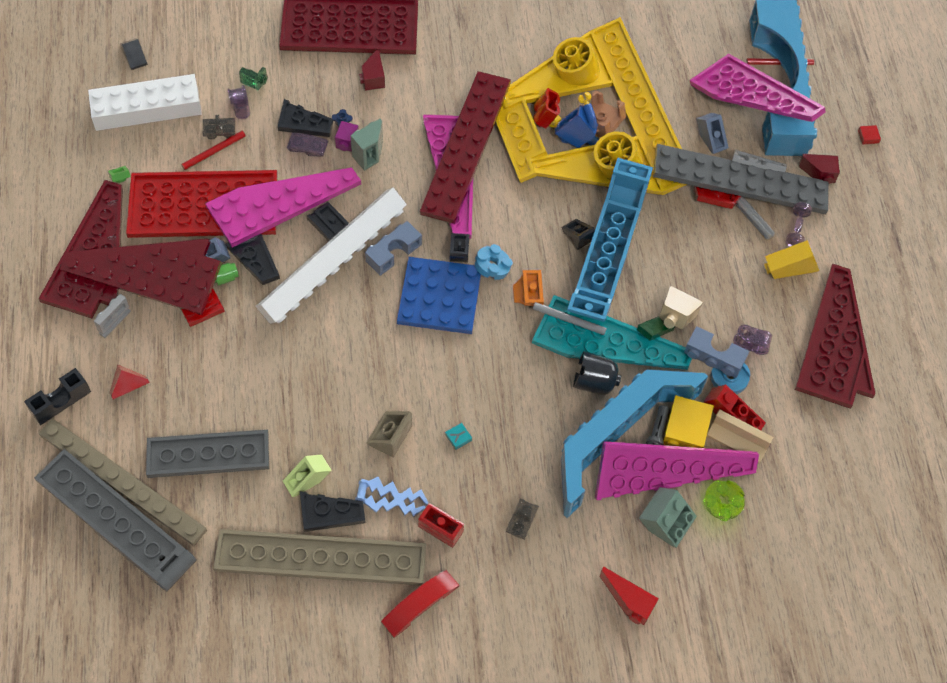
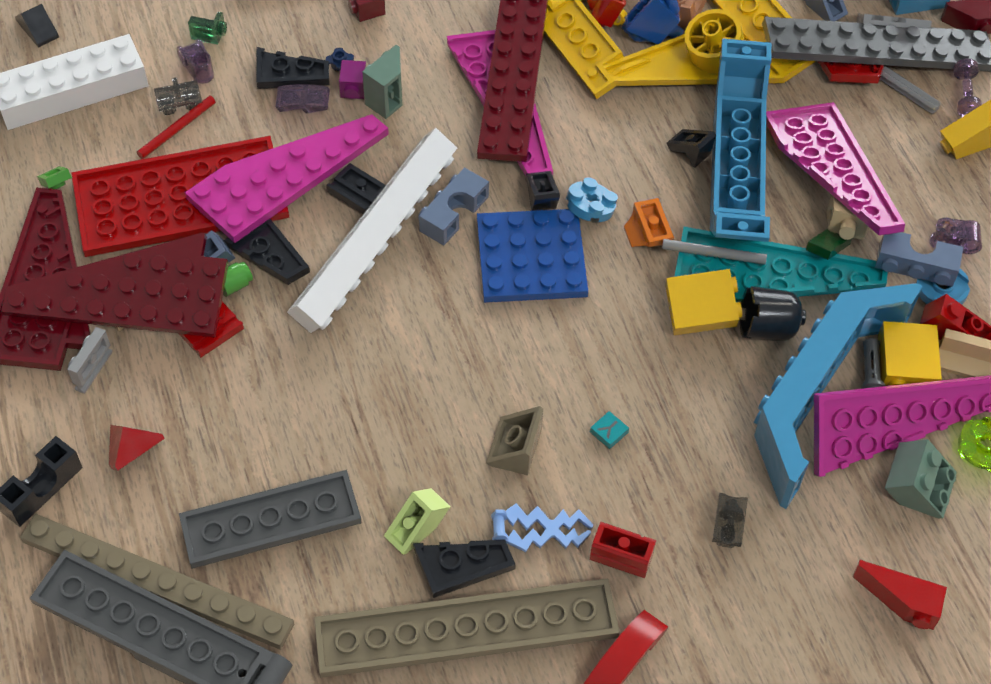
camera: 10 degrees left, 5 degrees down
(549, 355) = (703, 302): none -> yellow brick
(675, 258) = (829, 153): none -> dark pink wing

